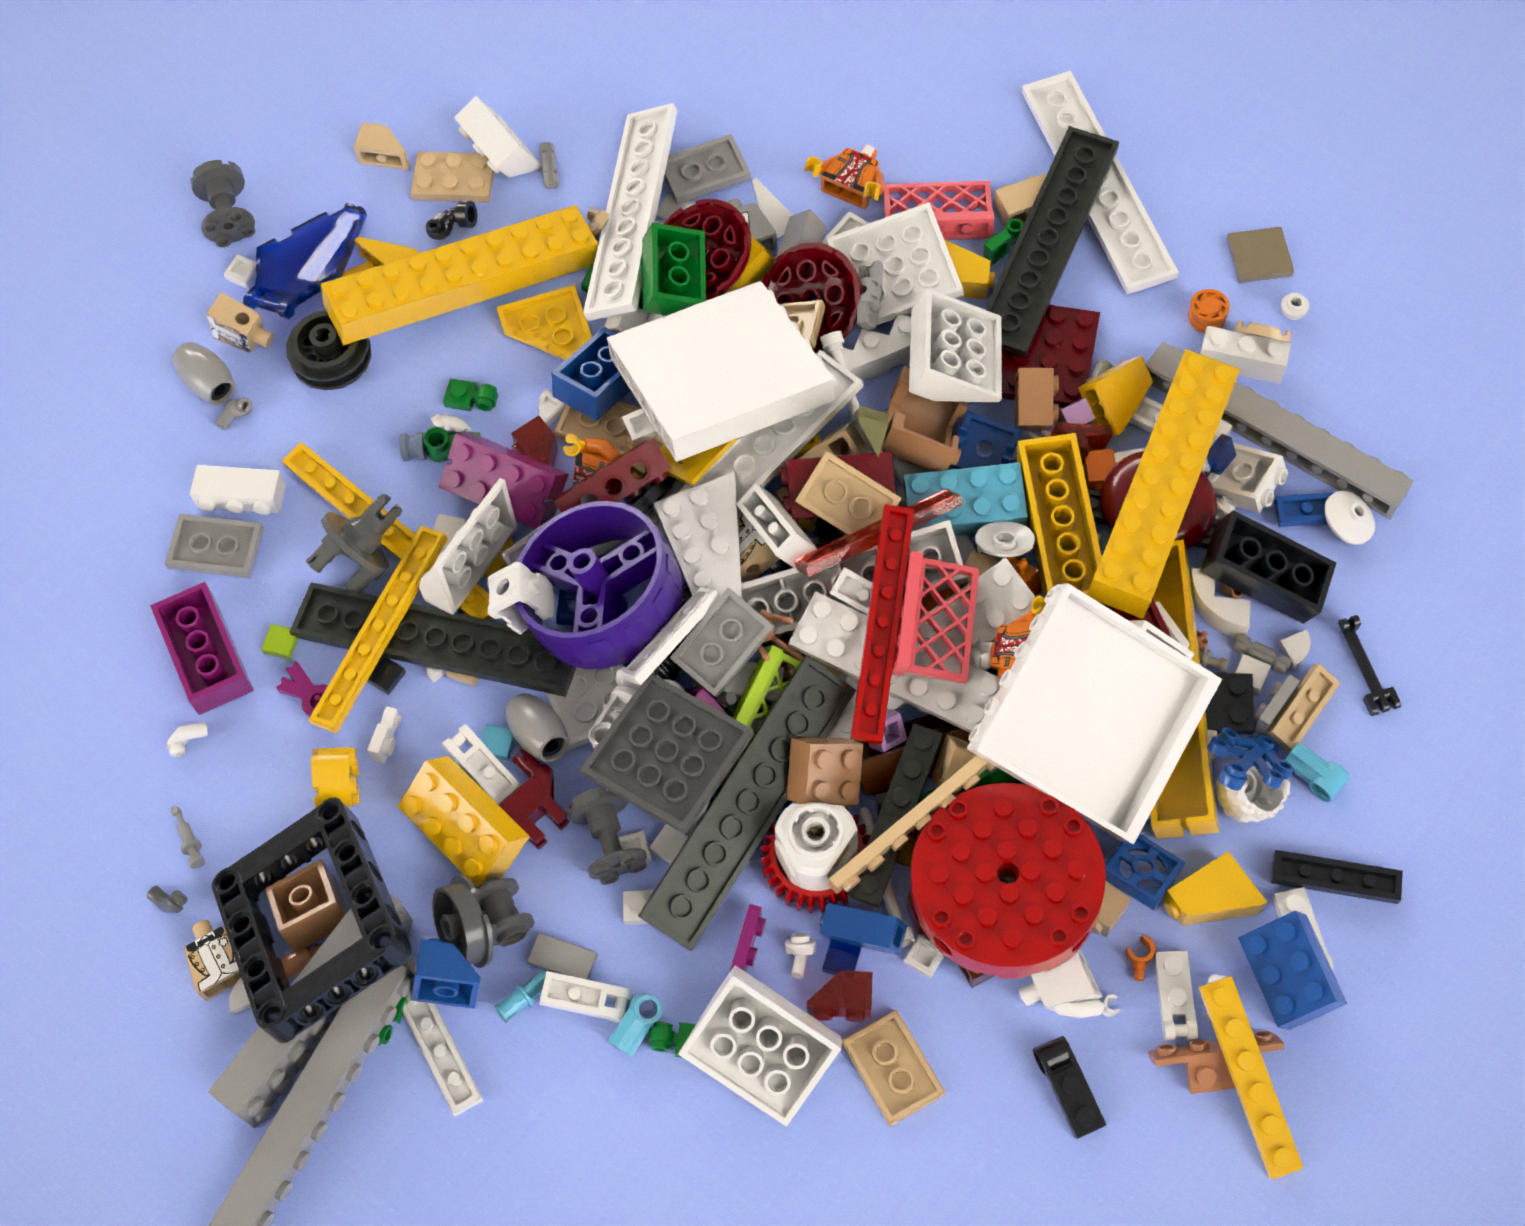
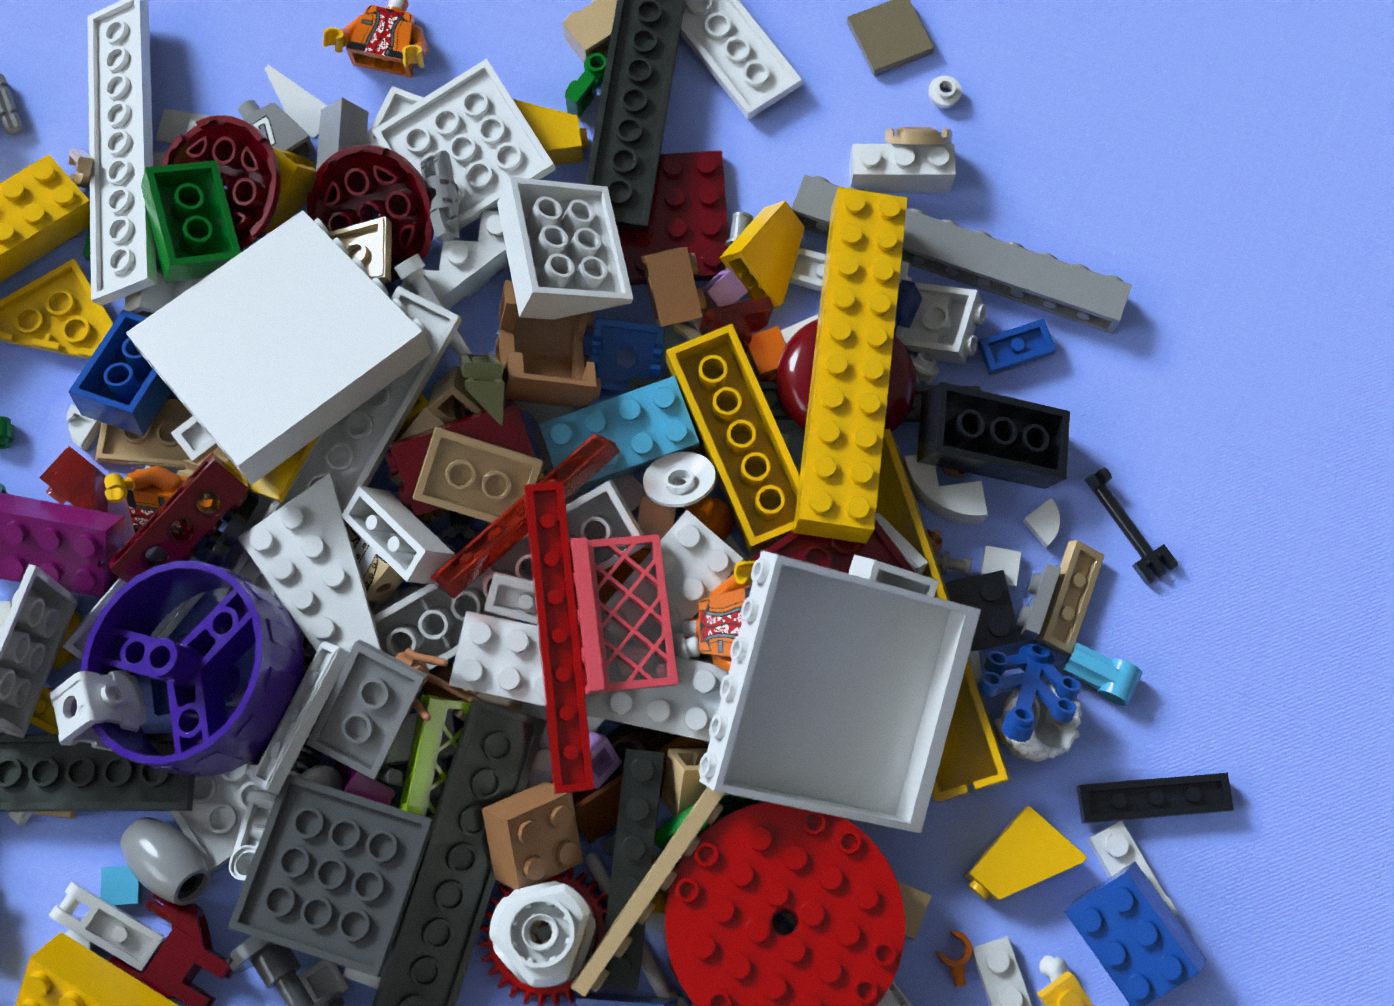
camera: 20 degrees left, 10 degrees up
(705, 169) = (202, 68): light grey plate -> none
(953, 225) = (521, 77): coral fence -> none
(1148, 897) = (950, 888): blue piece -> none
(1208, 310) = (847, 120): orange wheel -> none
(1262, 653) = (1007, 539): light grey axle -> none
(1349, 517) = (1067, 345): white dish -> none

